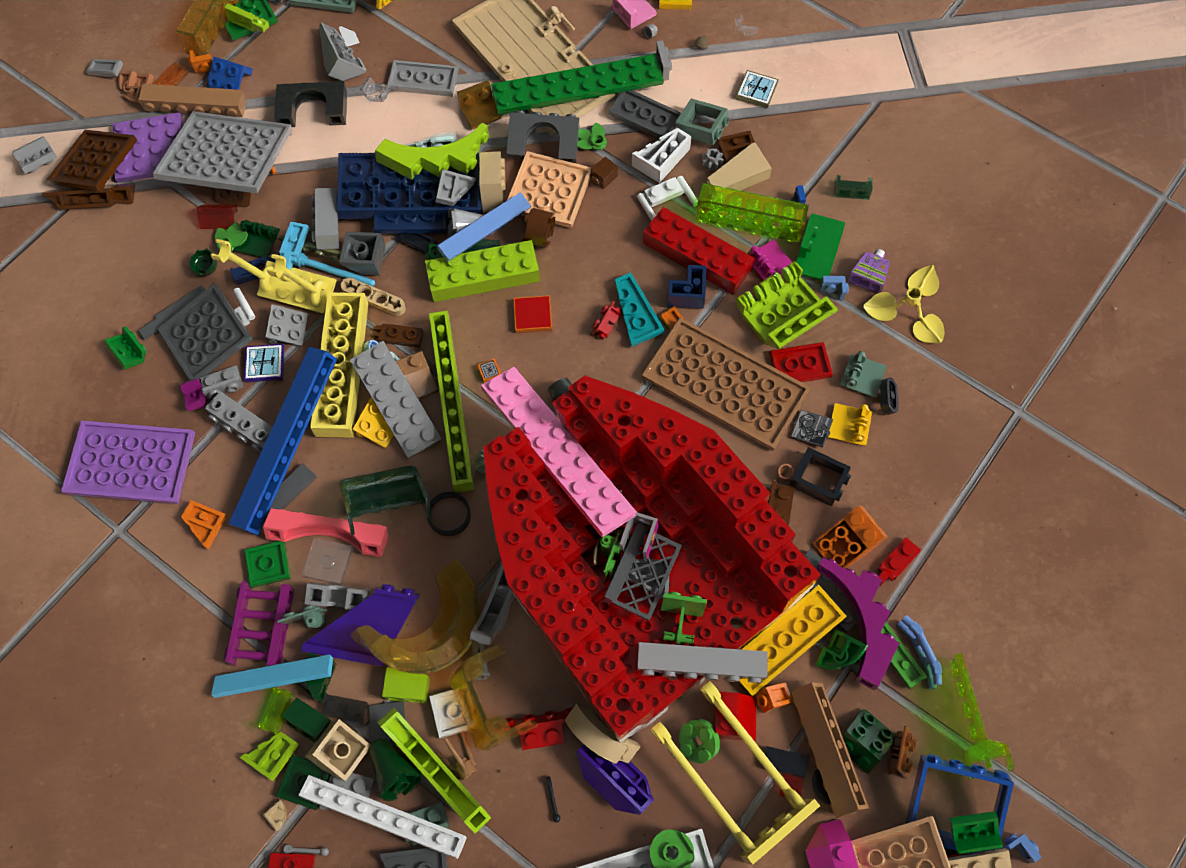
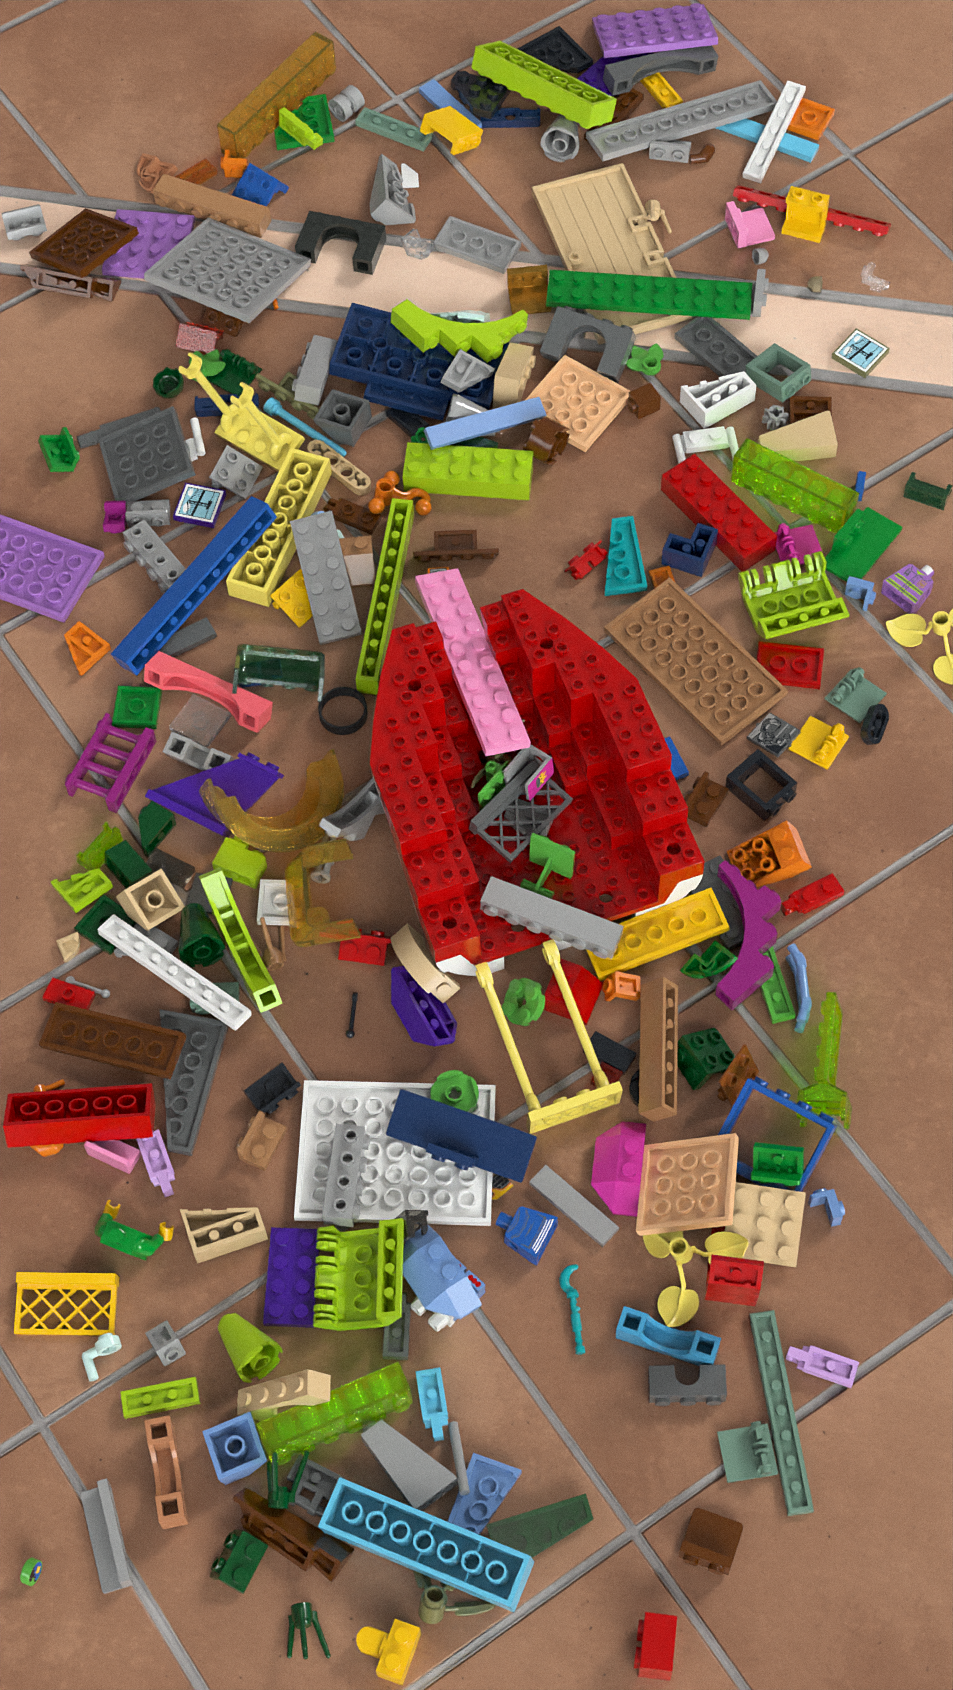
camera: 20 degrees right, 5 degrees down
(104, 67) = (127, 146): light grey tile -> none
(272, 676) = (108, 811): medium azure tile -> none
(293, 242) = (271, 386): medium azure hinge -> none
(311, 615) = (165, 763): sand green hinge -> none
(420, 308) = (386, 490): none -> orange piece
(494, 337) = (455, 544): none -> reddish brown bracket
(532, 314) = (508, 532): red tile -> none
(782, 468) = (722, 766): nougat hinge -> none

